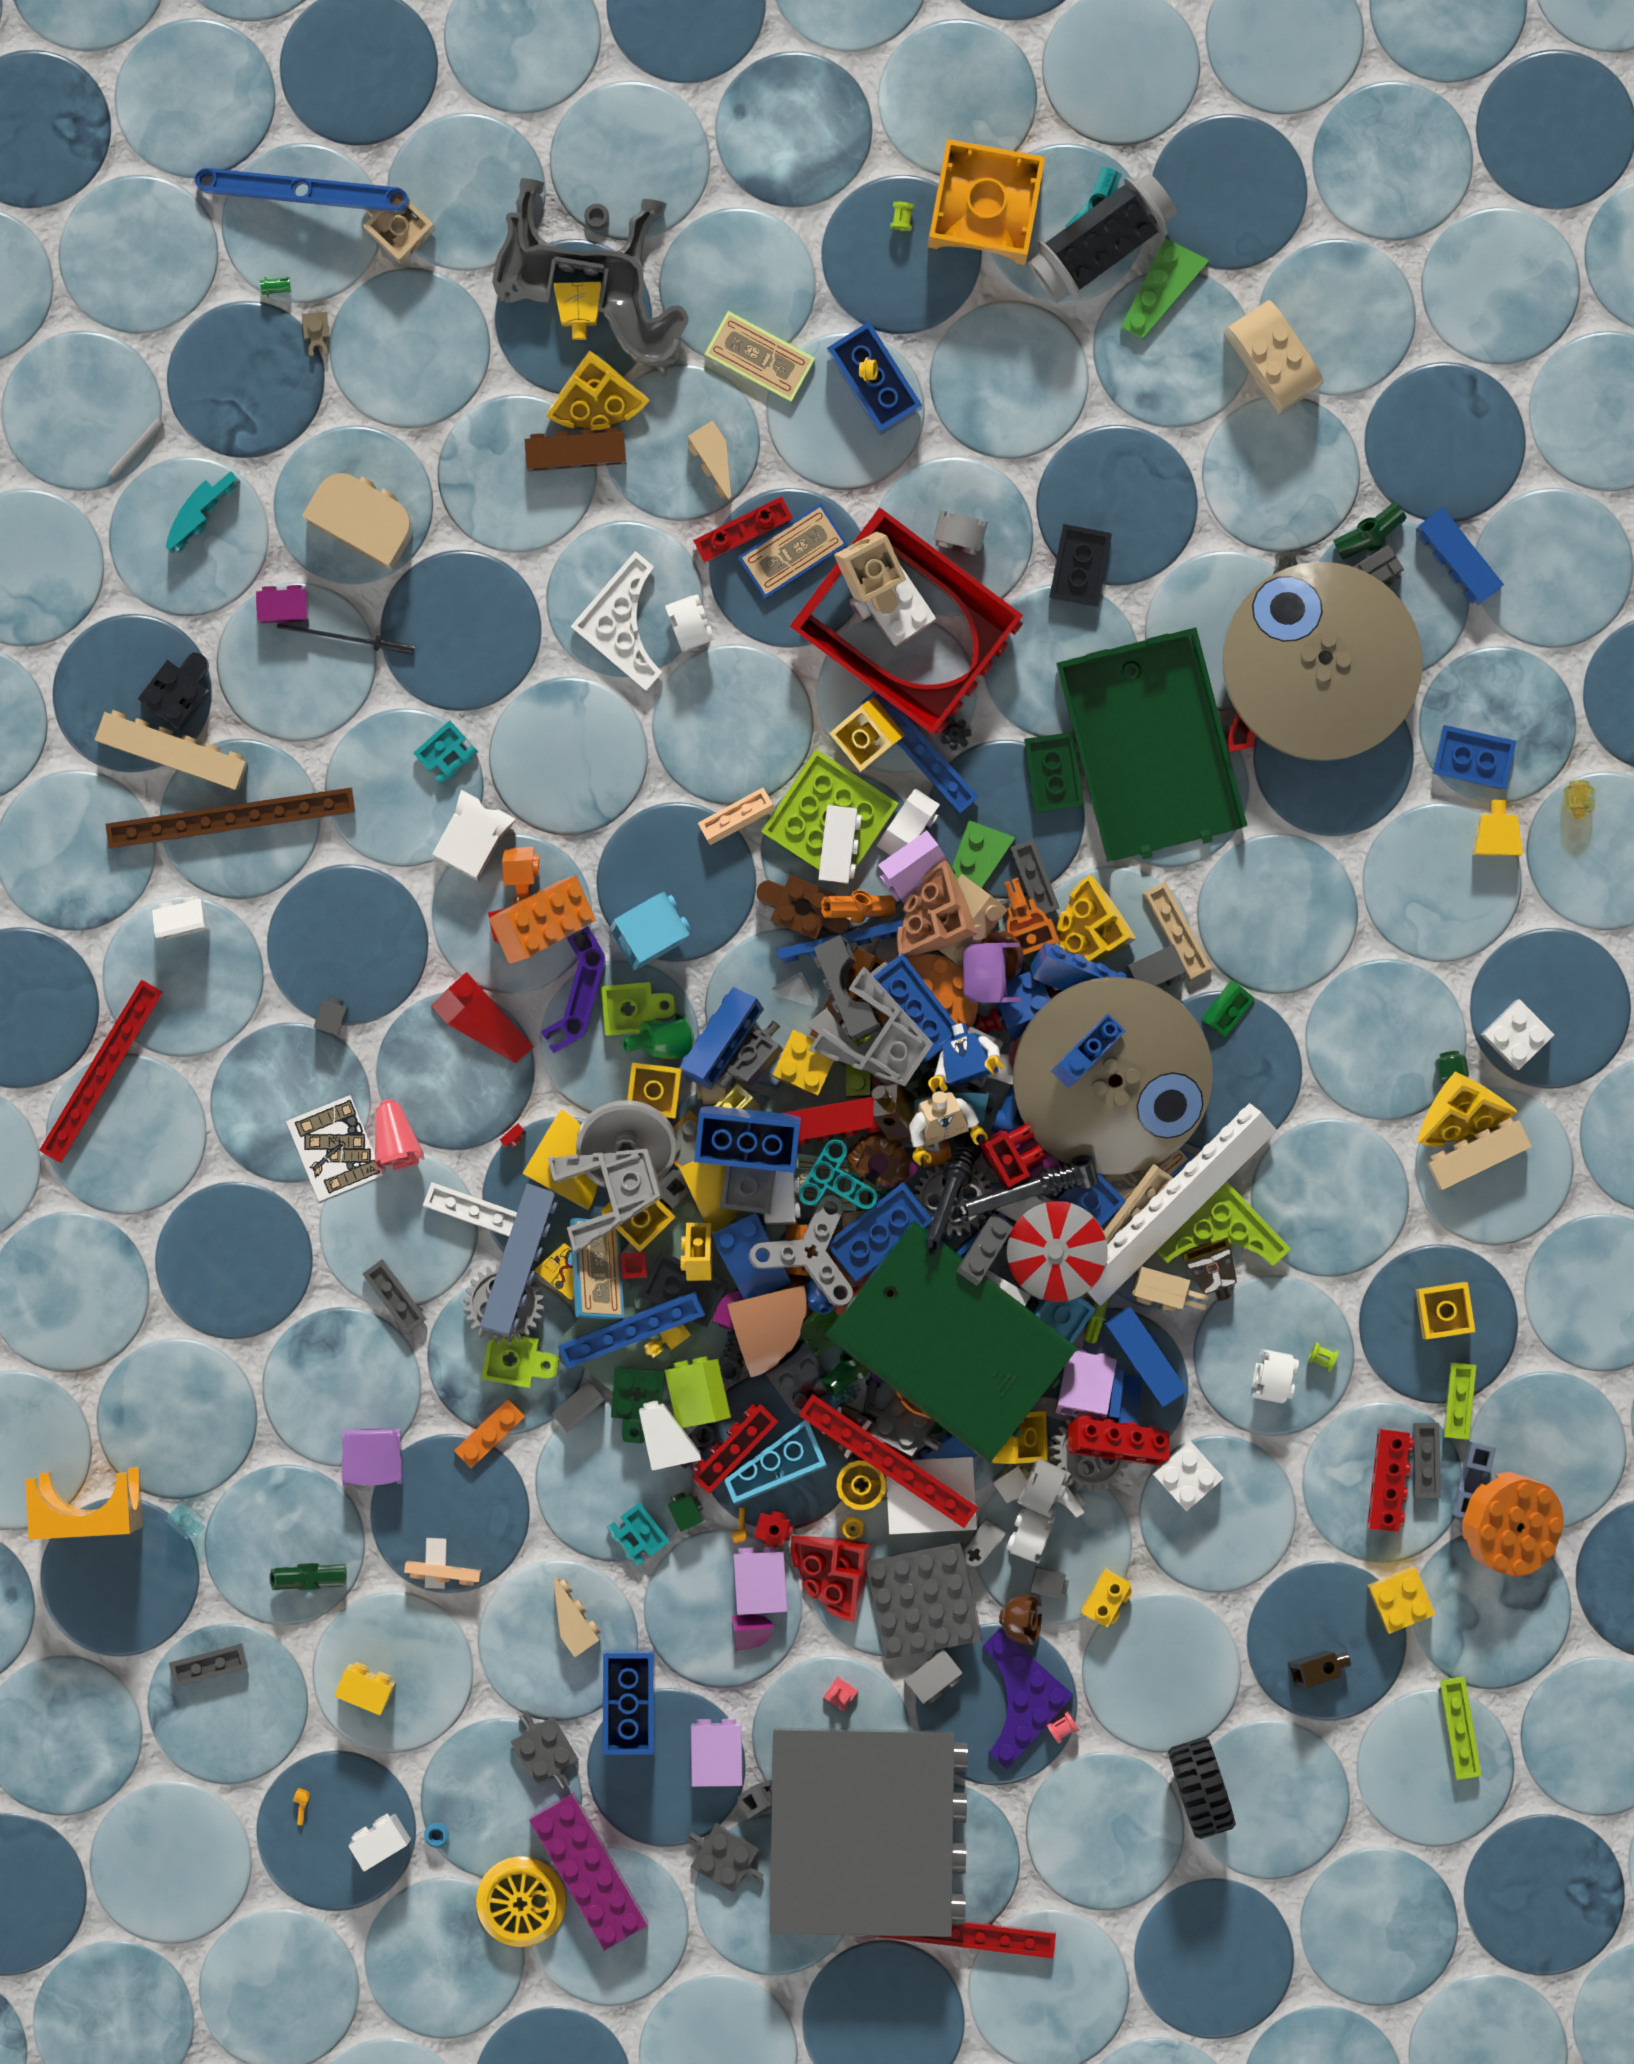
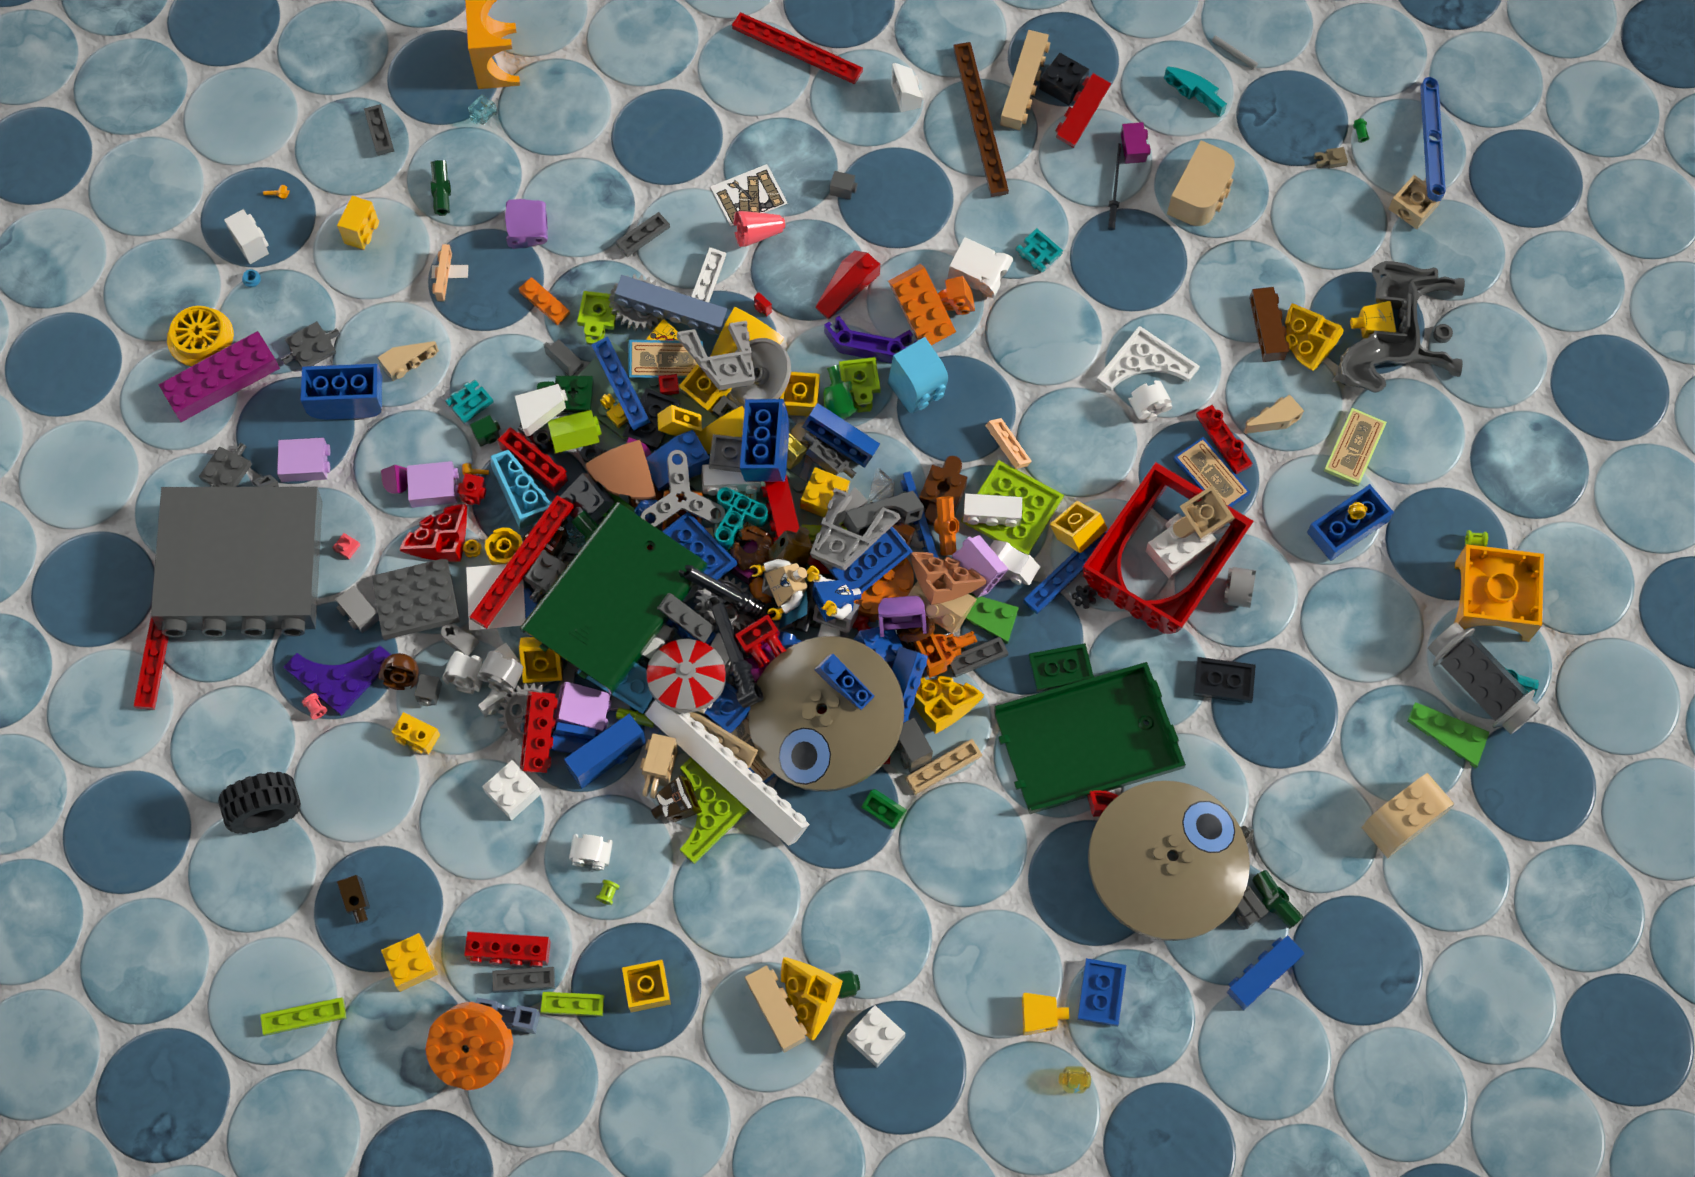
camera: 85 degrees right, 20 degrees down
(236, 674) = (1083, 109): none -> red brick

